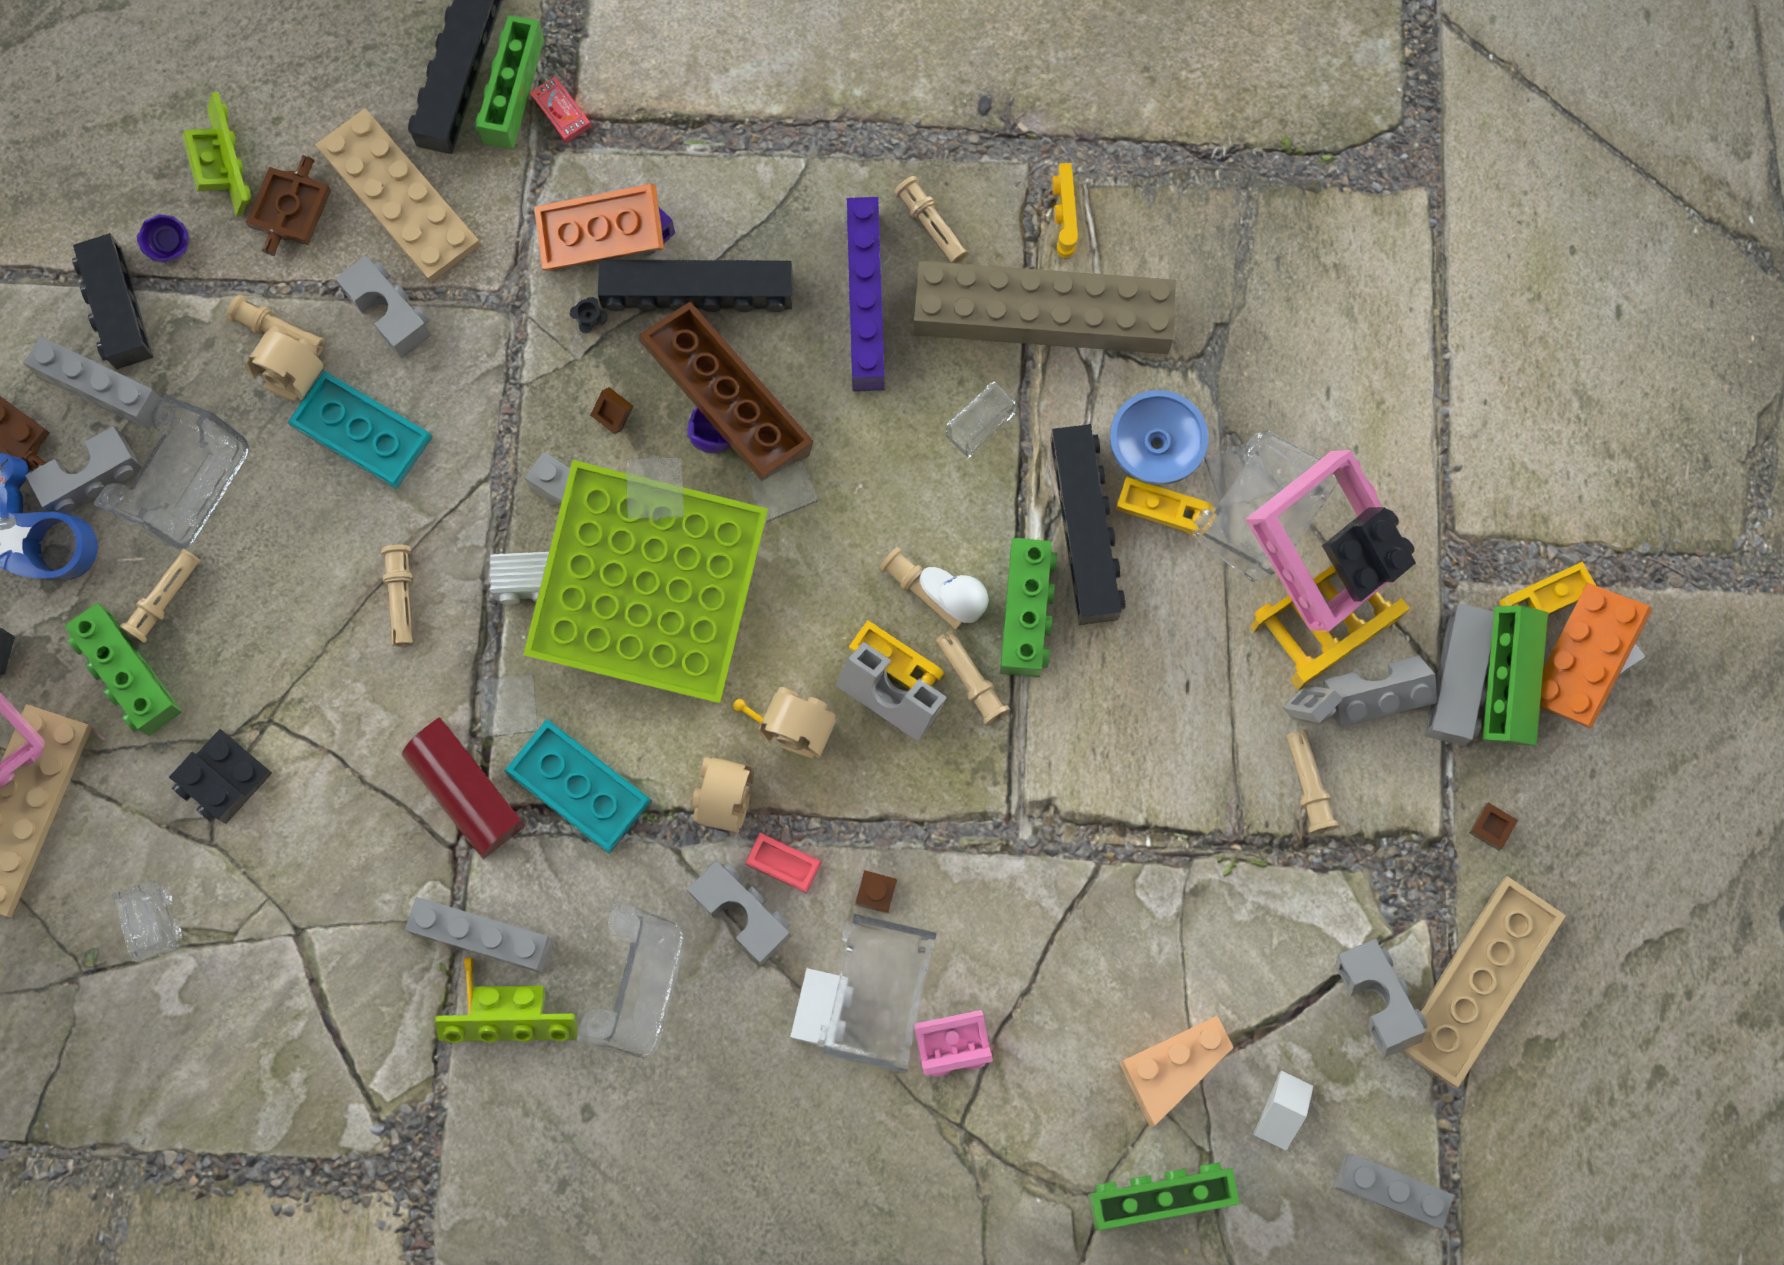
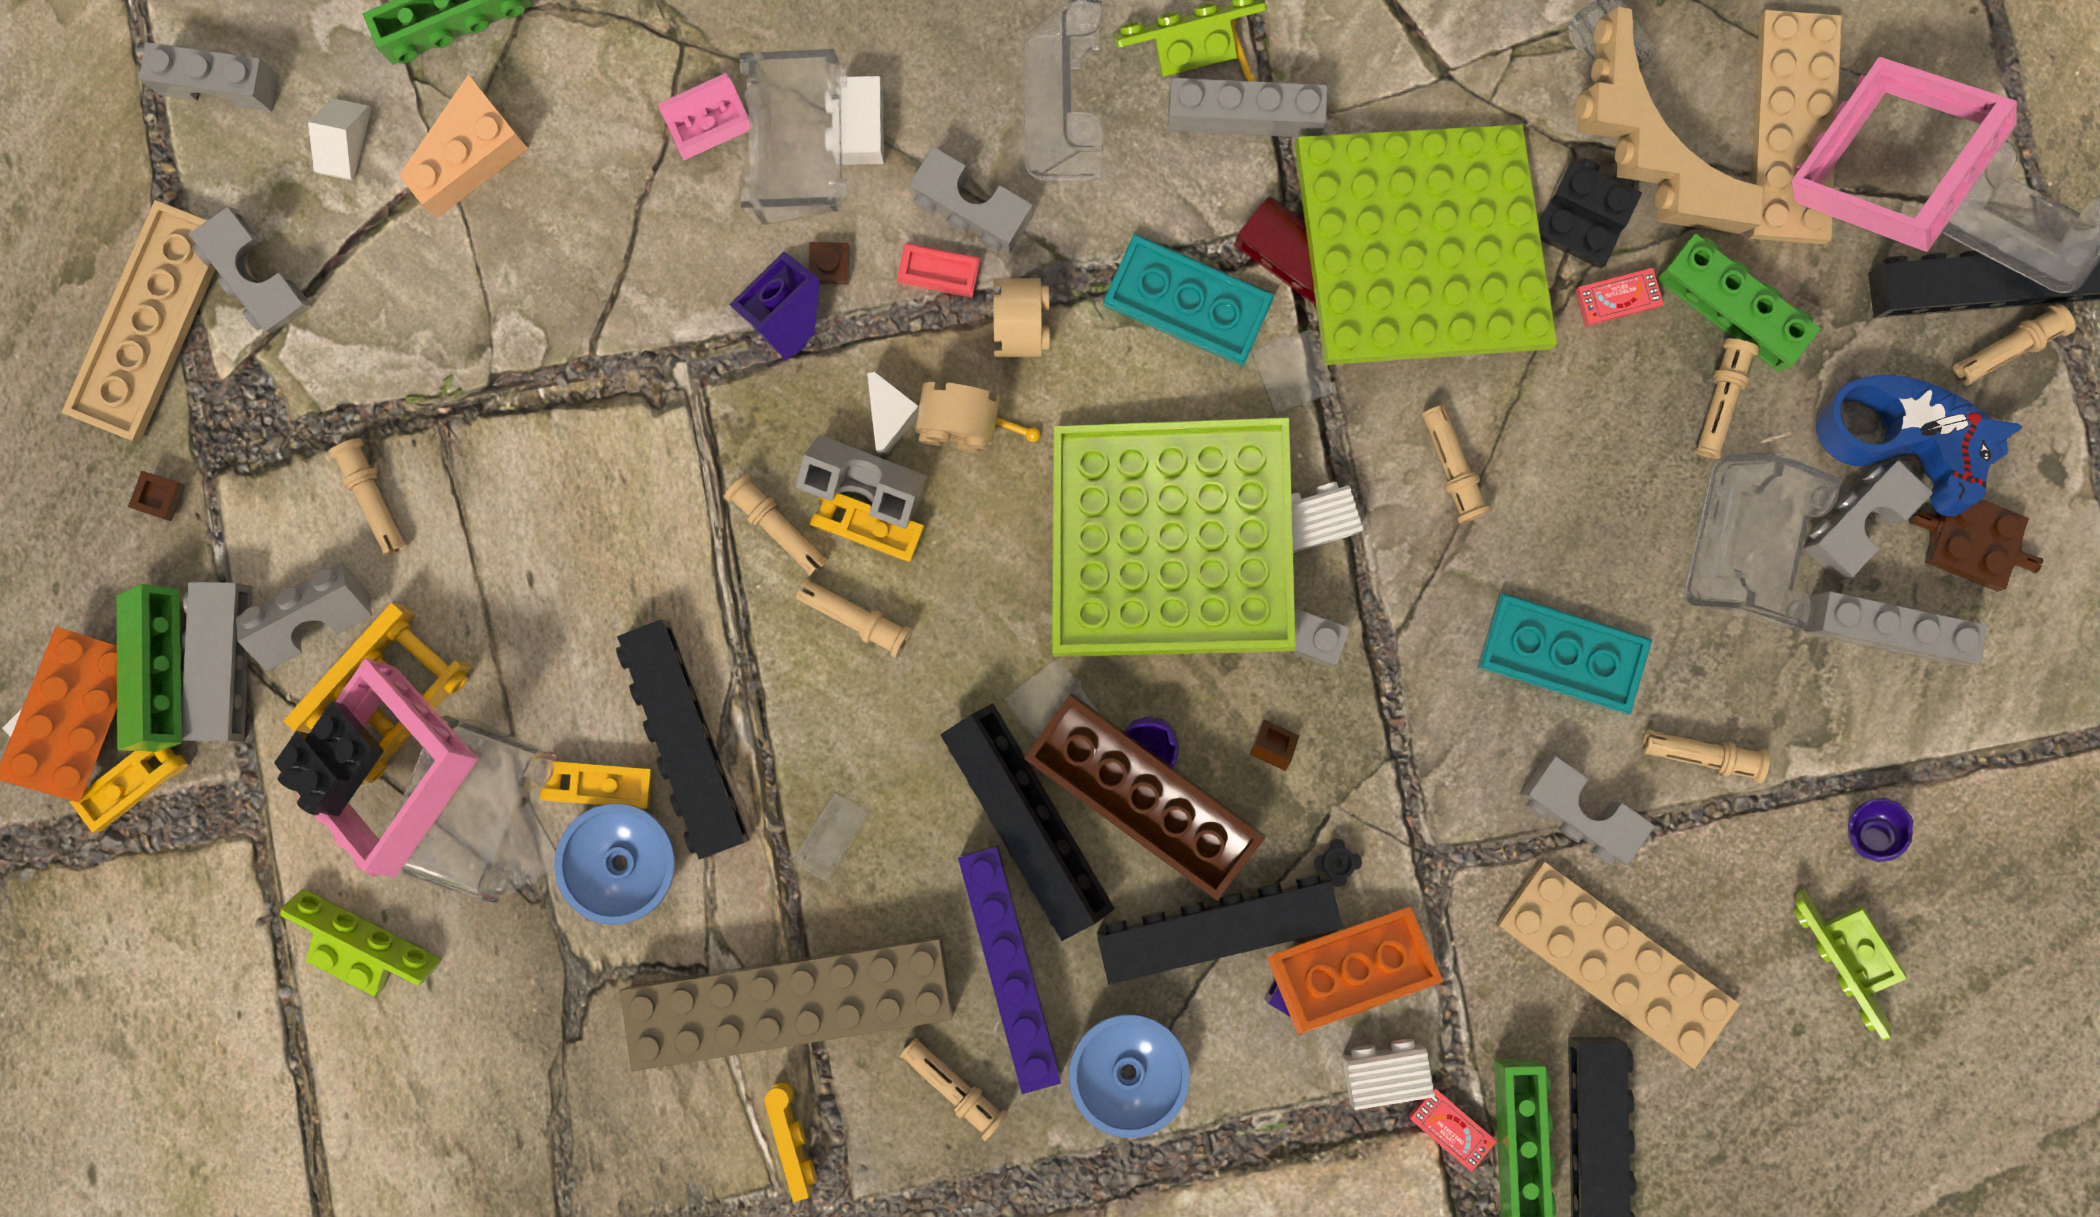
camera: 170 degrees right, 10 degrees up
(112, 301) = (1913, 738): black brick -> none
(152, 808) = (1648, 150): none -> tan arch
(217, 701) = (1619, 297): none -> coral tile
(284, 364) = (1679, 701): tan brick -> none
(288, 205) = (1744, 914): reddish brown plate -> none
(365, 778) = (1424, 244): none -> lime plate
(597, 154) = (1387, 1074): none -> white brick
(654, 488) = (1189, 639): clear piece -> none
(789, 178) = (1133, 1104): none -> medium blue dish
(823, 396) = (1027, 822): none -> black brick
(853, 746) = (891, 413): none -> white slope
(925, 861) = (781, 305): none -> dark purple slope
(959, 595) = (813, 613): white cap -> none
(1026, 607) = (730, 621): bright green brick -> none
(1313, 704) = (376, 578): light grey plate -> none
(1380, 427) = (355, 947): none -> lime bracket

